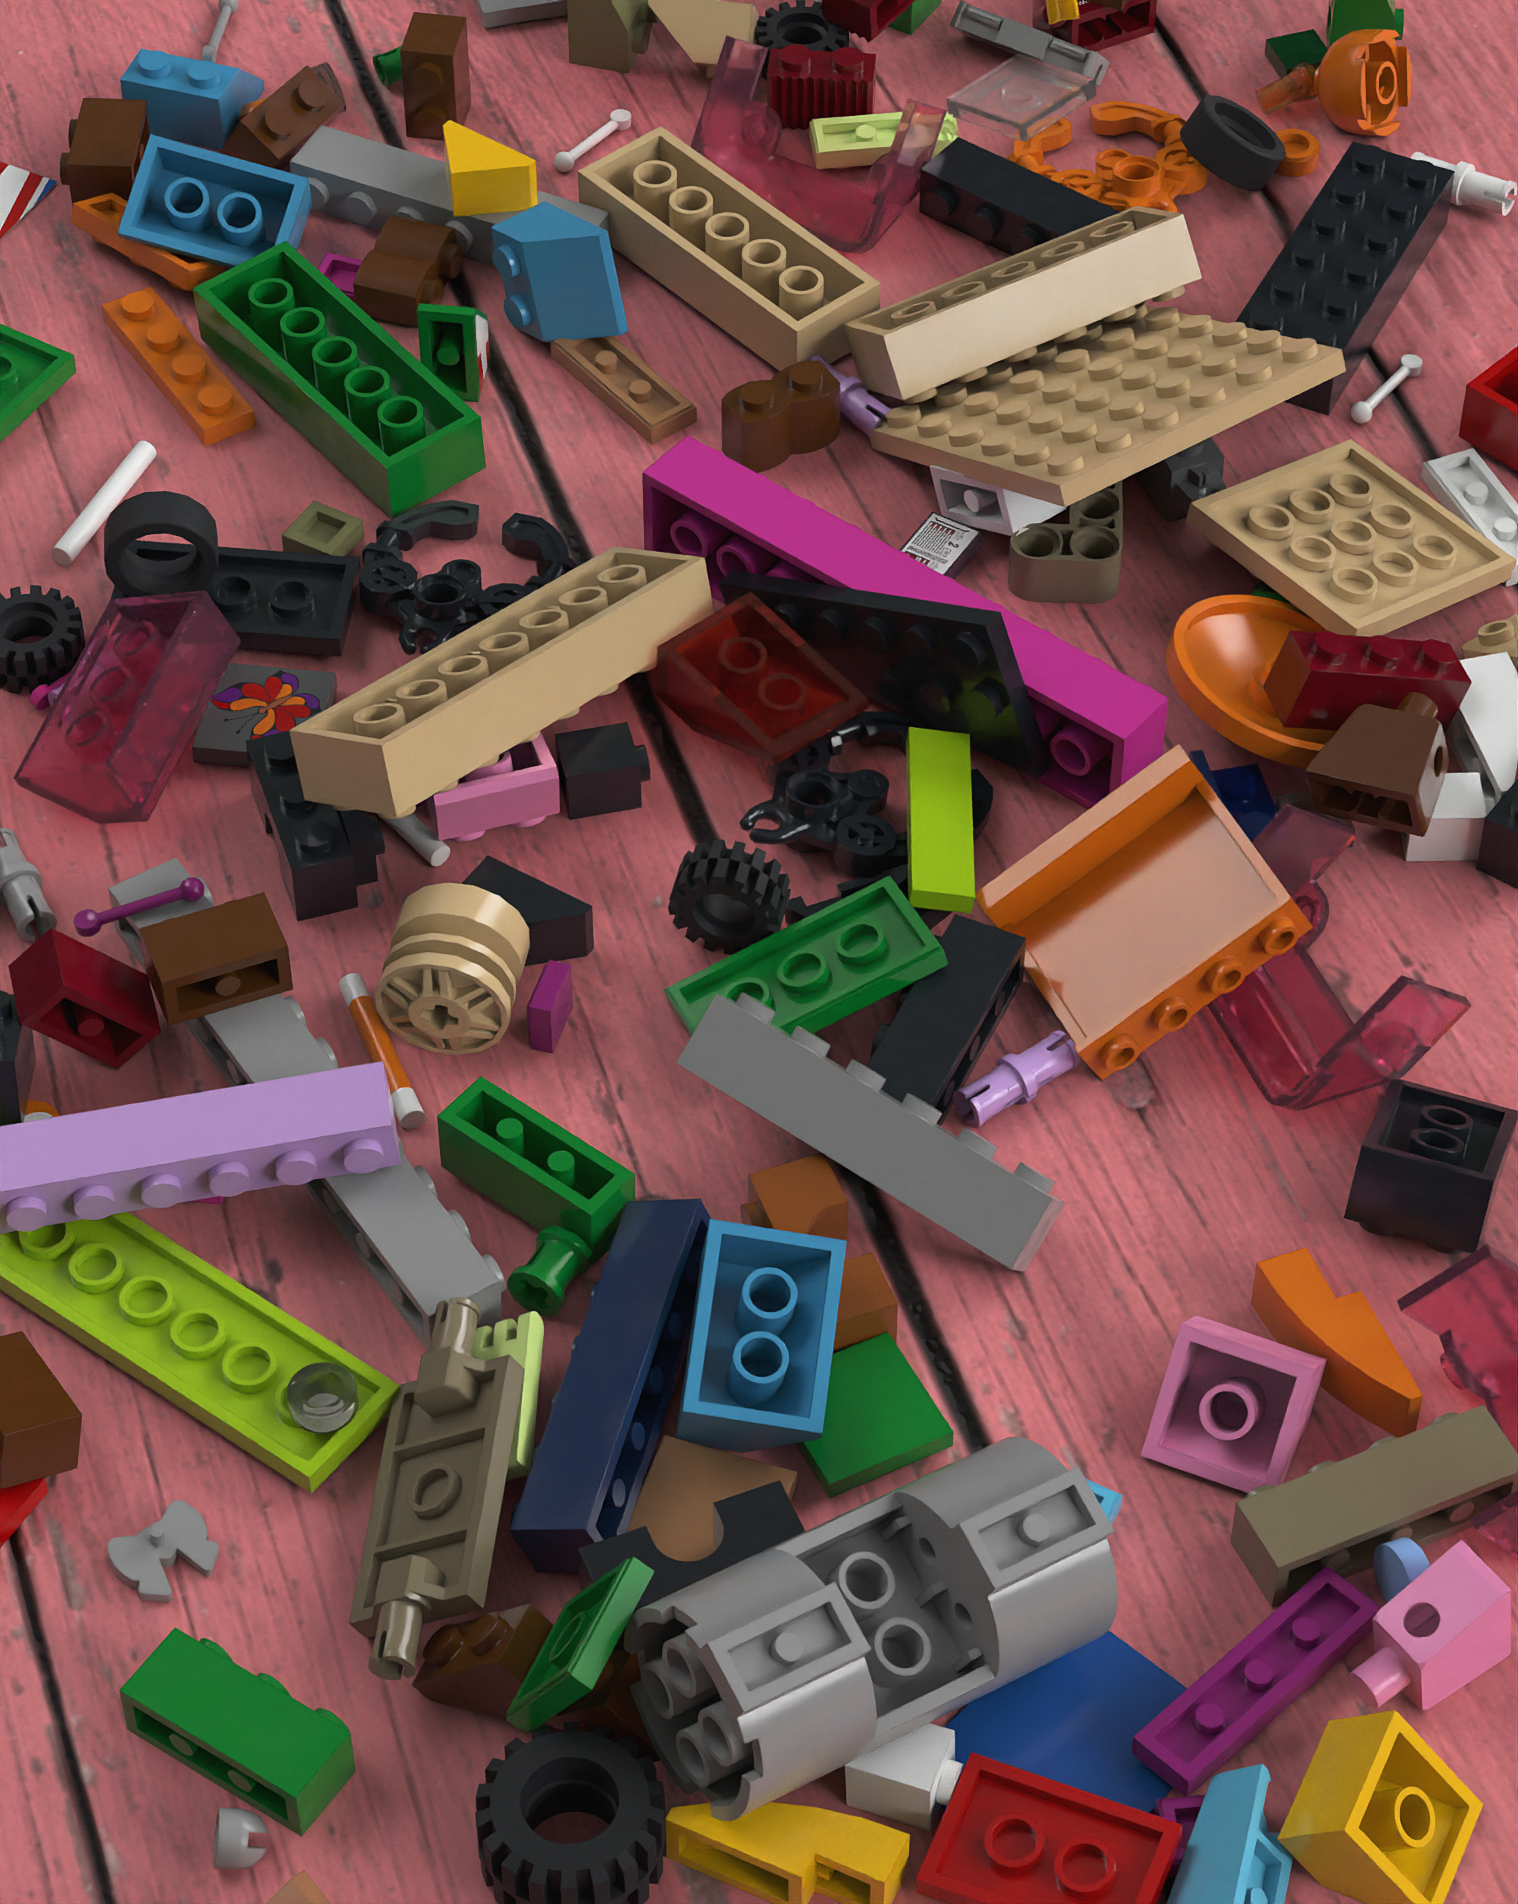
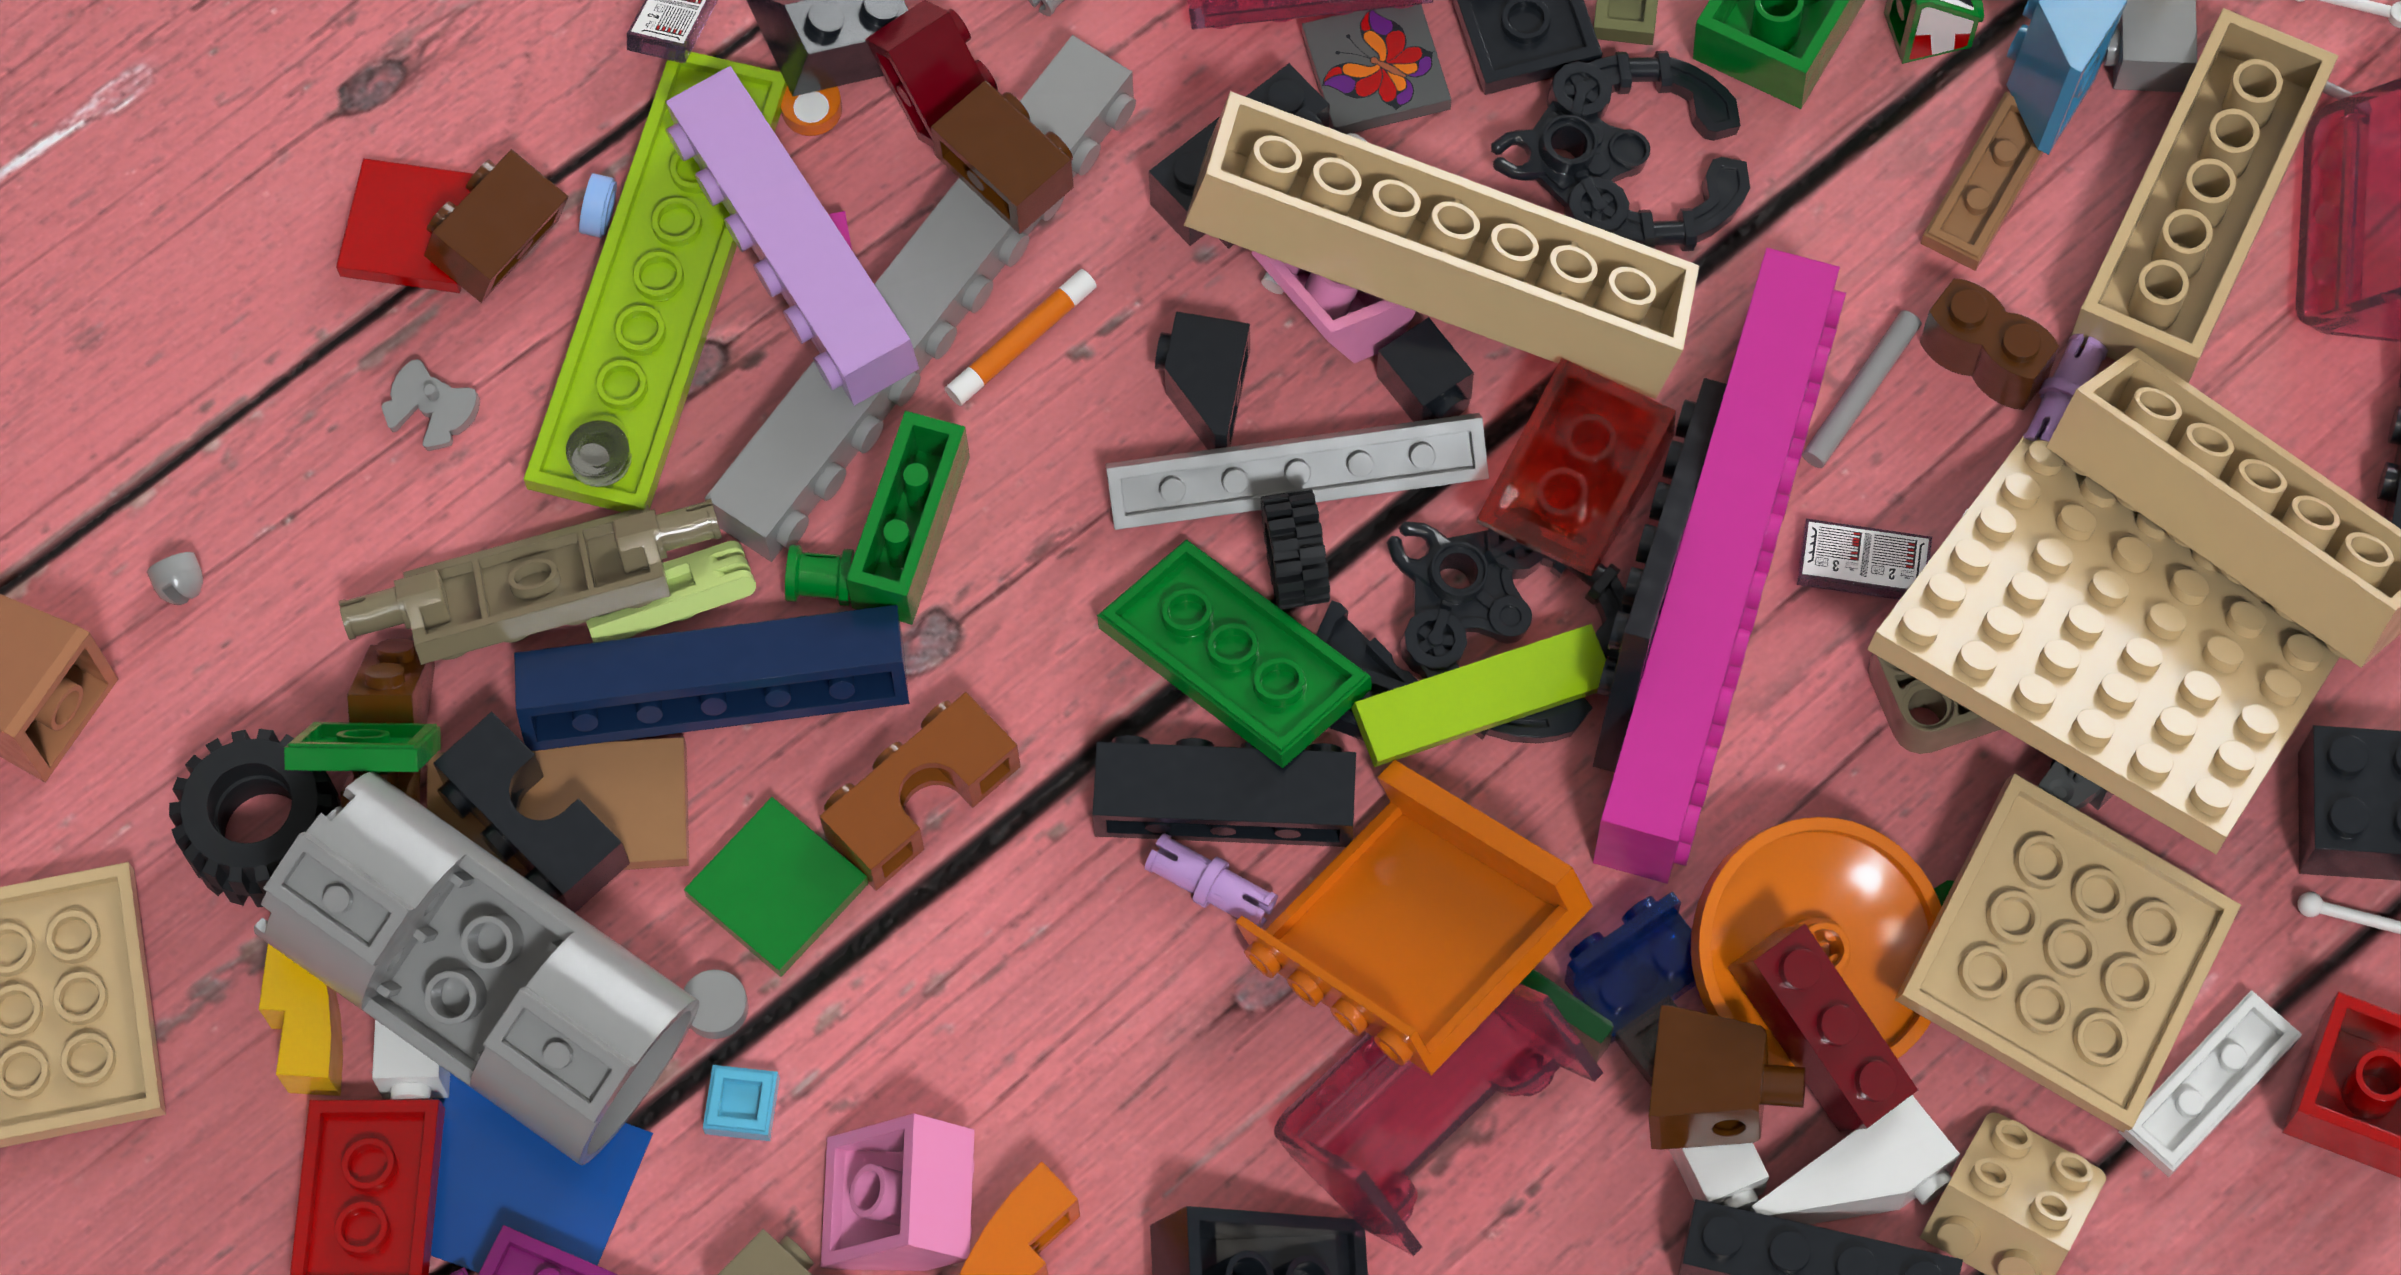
camera: 70 degrees right, 20 degrees up
(38, 1322) = (598, 205): none -> light blue tile
(89, 921) = (1023, 39): magenta hinge -> none
(239, 1730) = (269, 535): green brick -> none
(452, 969) = (1098, 352): tan wheel -> none
(550, 1006) = (1111, 447): magenta tile -> none
(639, 891) = (1329, 464): none -> light grey plate
(760, 1338) = (779, 766): dark azure slope -> none
(872, 1132) = (1050, 775): light grey brick -> none

